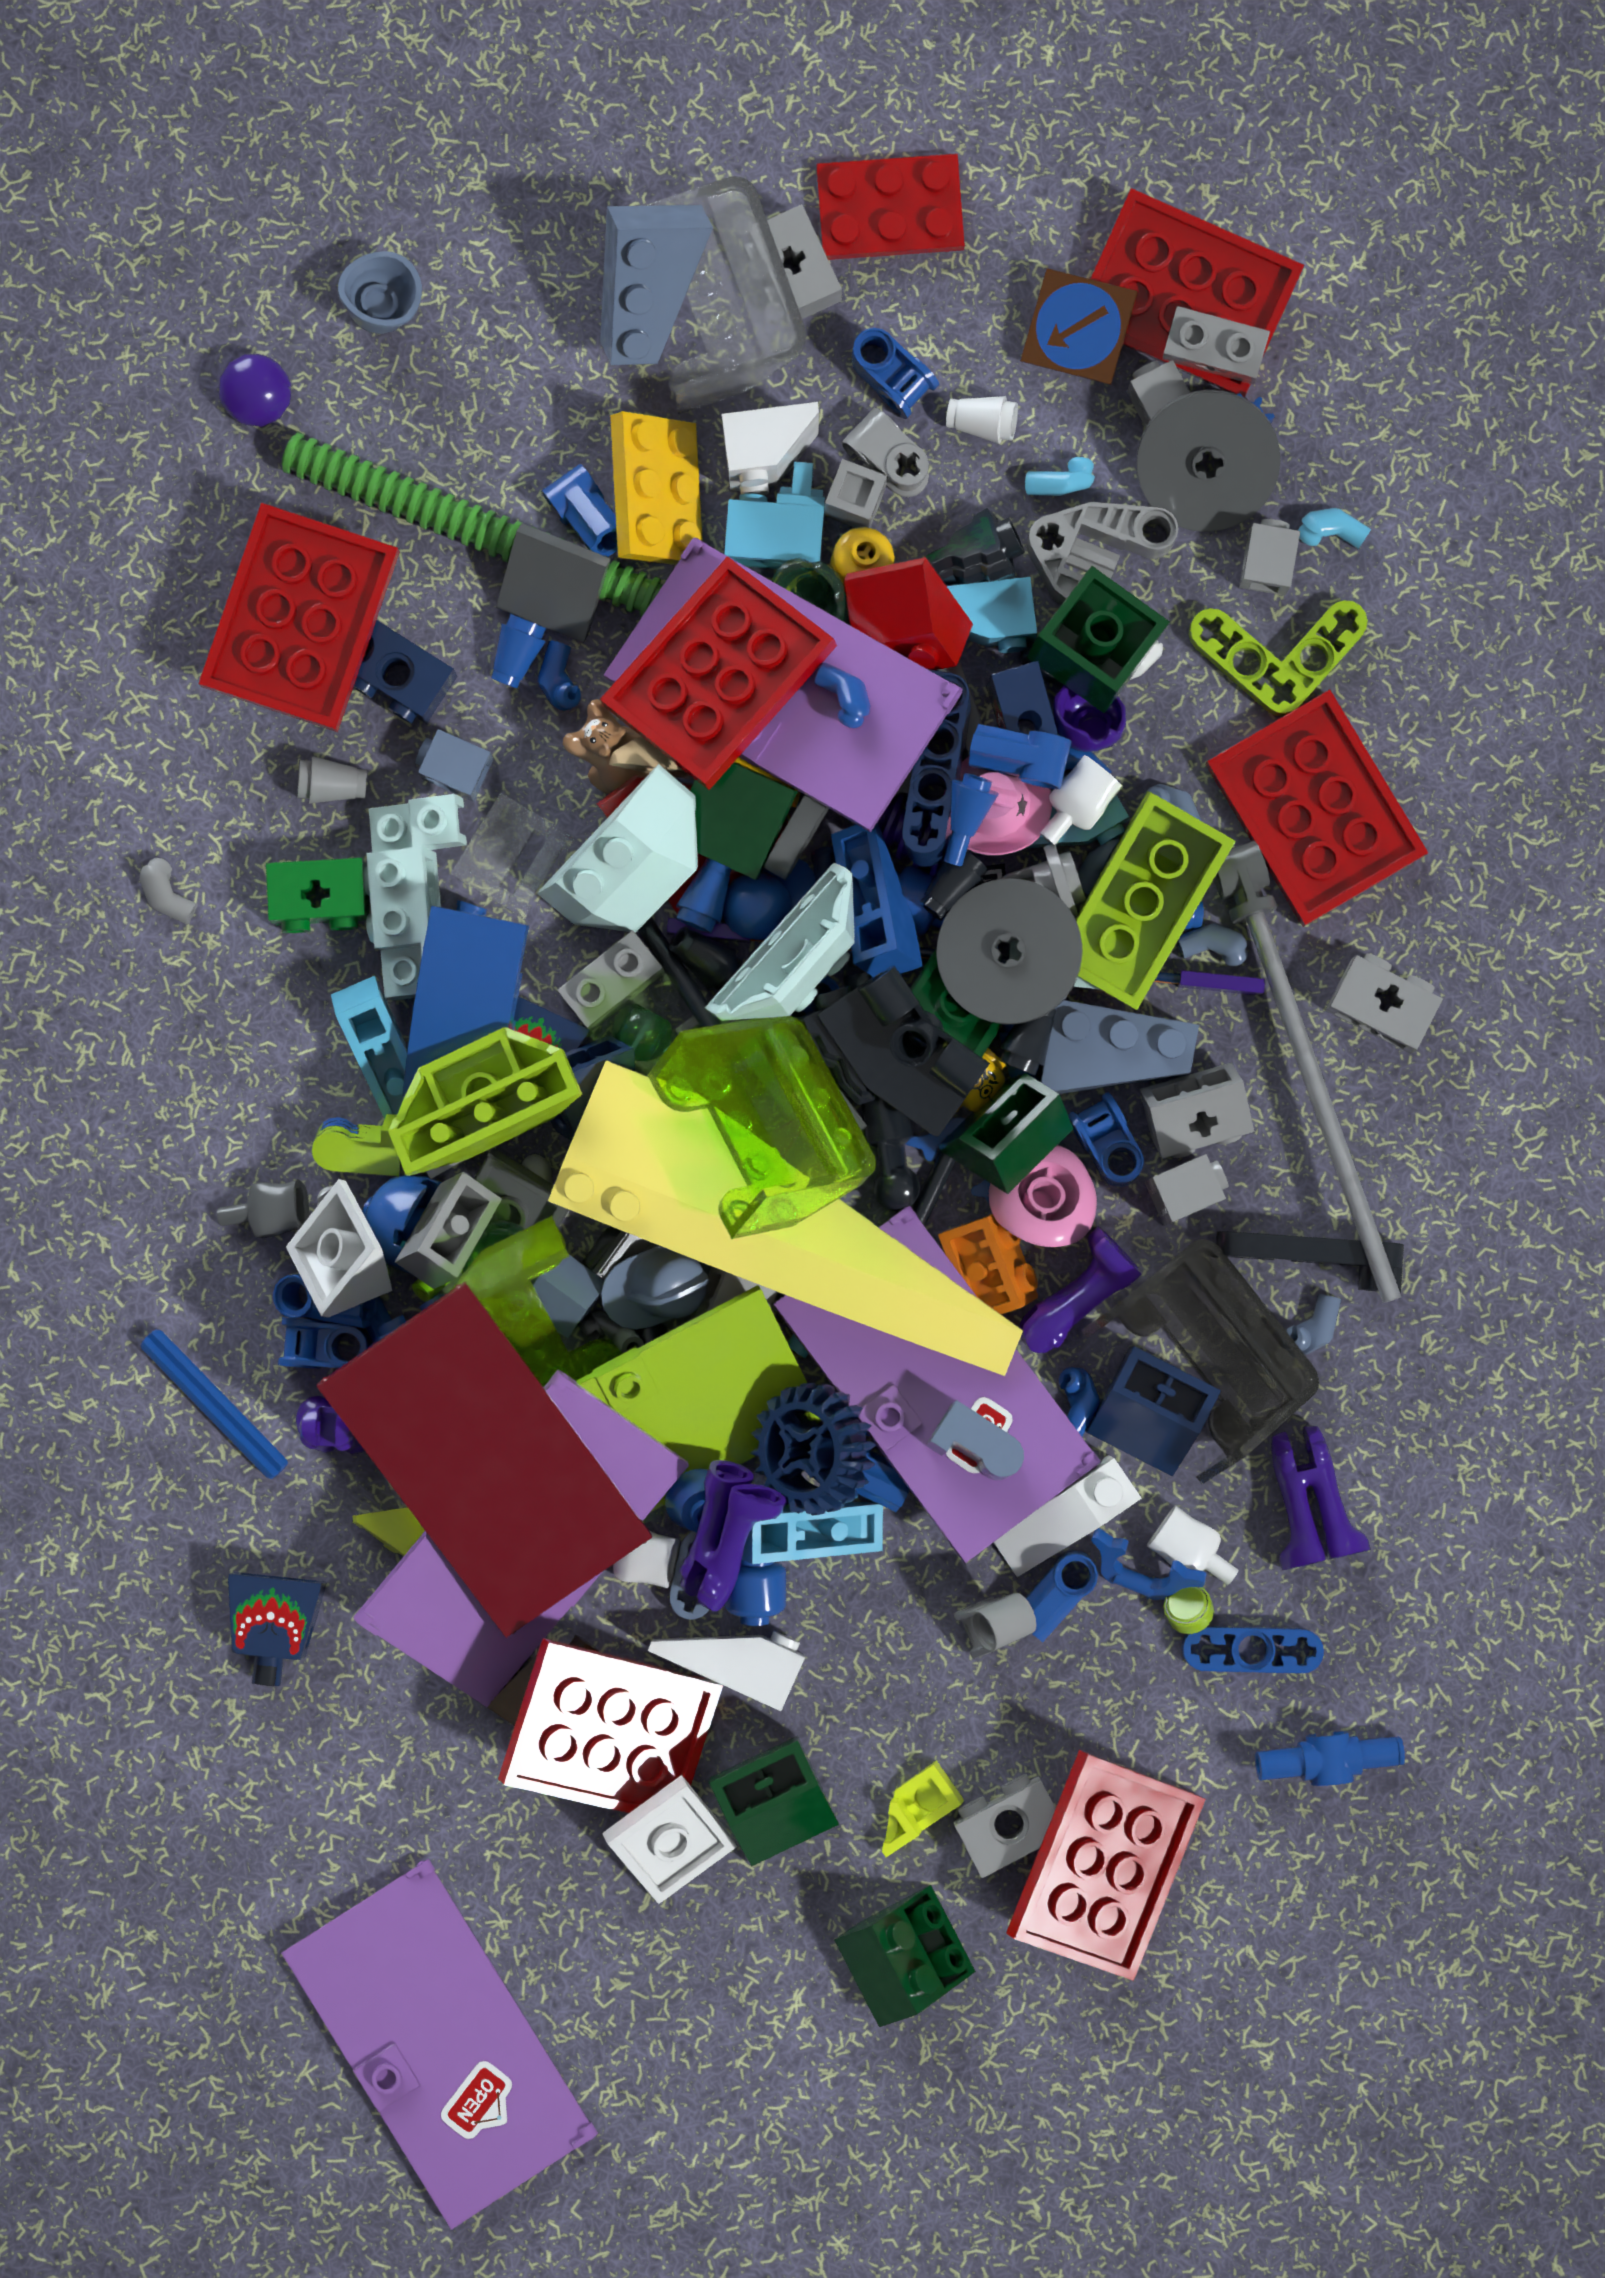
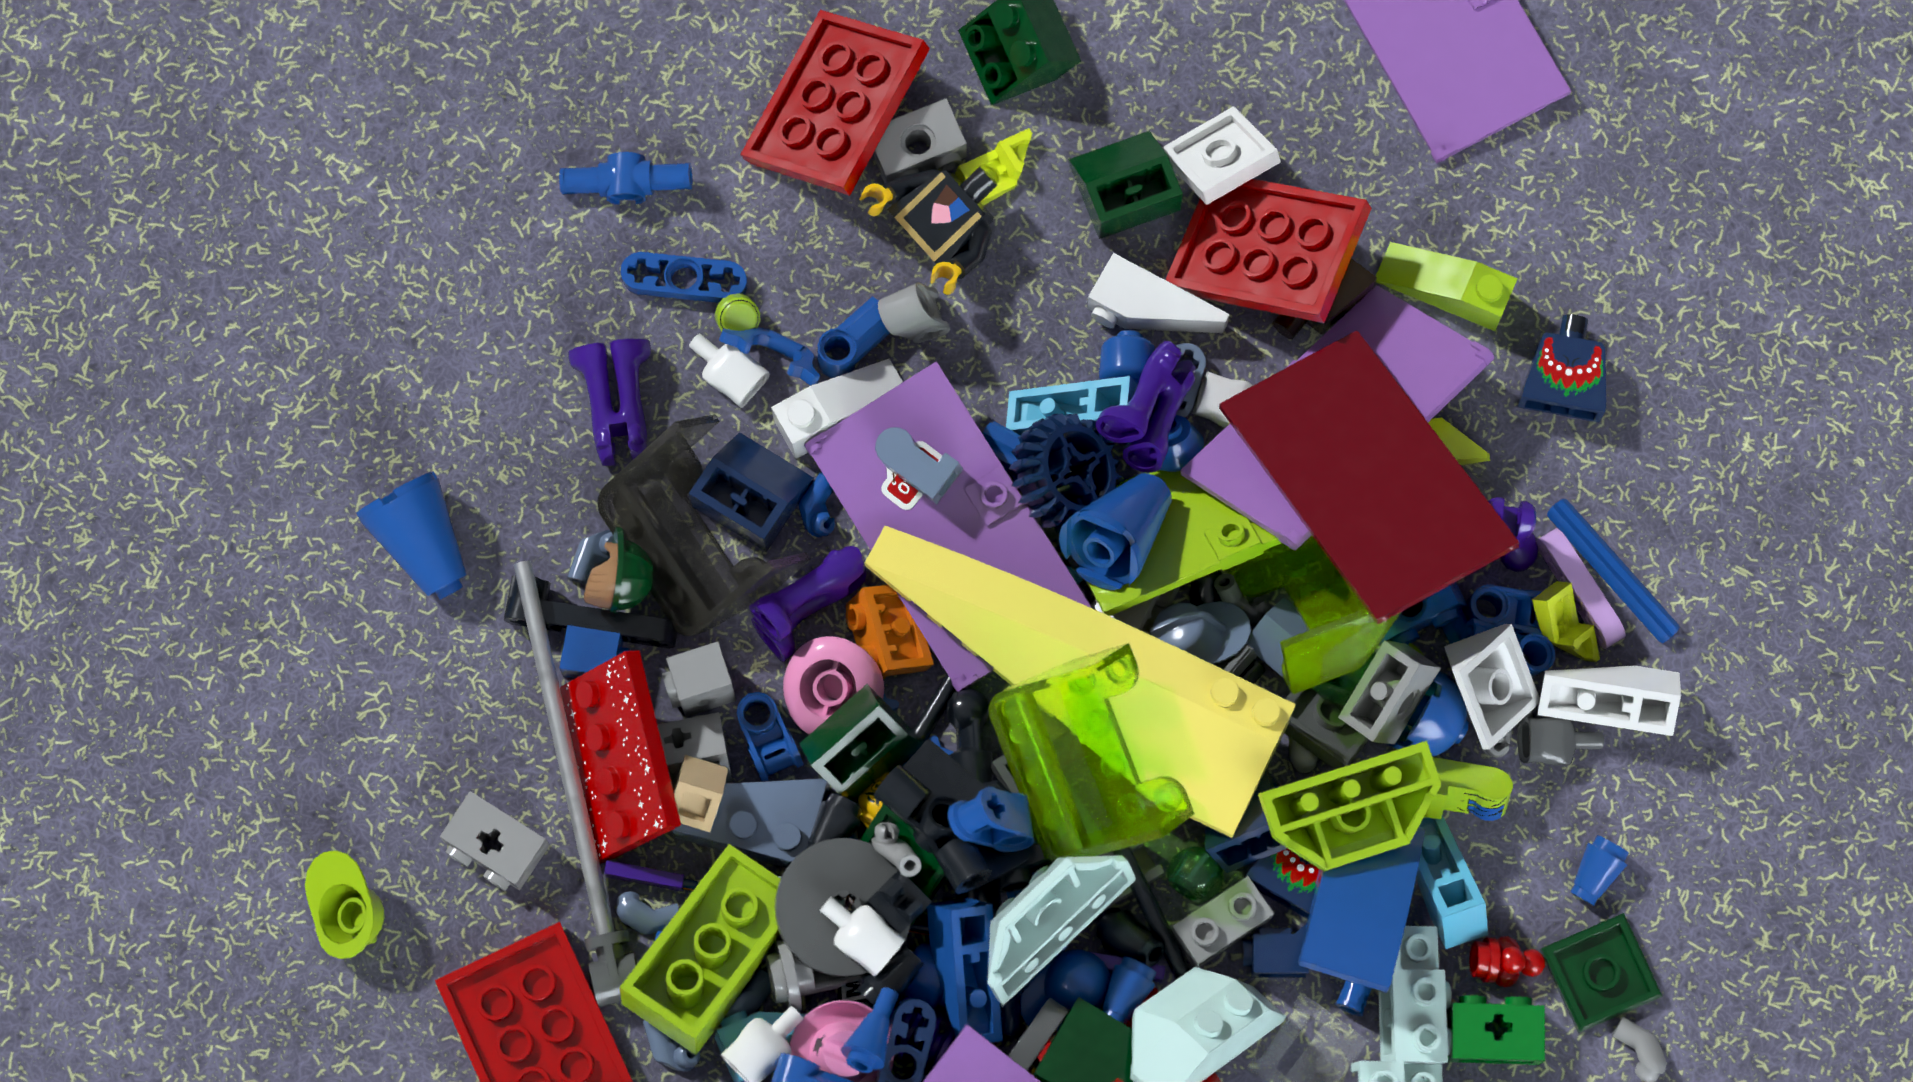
camera: 175 degrees left, 10 degrees down
(205, 1257) = (1613, 697): none -> white slope
(210, 968) = (1601, 973): none -> dark green tile
(217, 1075) = (1598, 869): none -> blue cone
(240, 1370) = (1589, 598): none -> lavender beam
(268, 1335) = (1559, 622): none -> neon yellow slope
(315, 970) = (1502, 961): none -> red piece
(410, 1714) = (1448, 283): none -> lime slope
(552, 957) = (1274, 953): none -> dark blue window
(750, 1382) = (1116, 531): none -> blue cone
(861, 1043) = (994, 820): none -> blue piece
(952, 959) = (898, 902): none -> black tile
(960, 1012) = (895, 850): none -> light grey arm
(973, 1737) = (941, 217): none -> black torso
(985, 918) = (863, 935): none -> white piece
(1176, 1059) = (699, 792): none -> tan panel
(1263, 1096) = (620, 756): none -> red plate
(1279, 1289) = (622, 579): none -> dark green piece
(1302, 1212) = (588, 649): none -> blue brick
(1508, 1327) = (418, 534): none -> blue cone
(1533, 918) = (342, 905): none -> lime piece

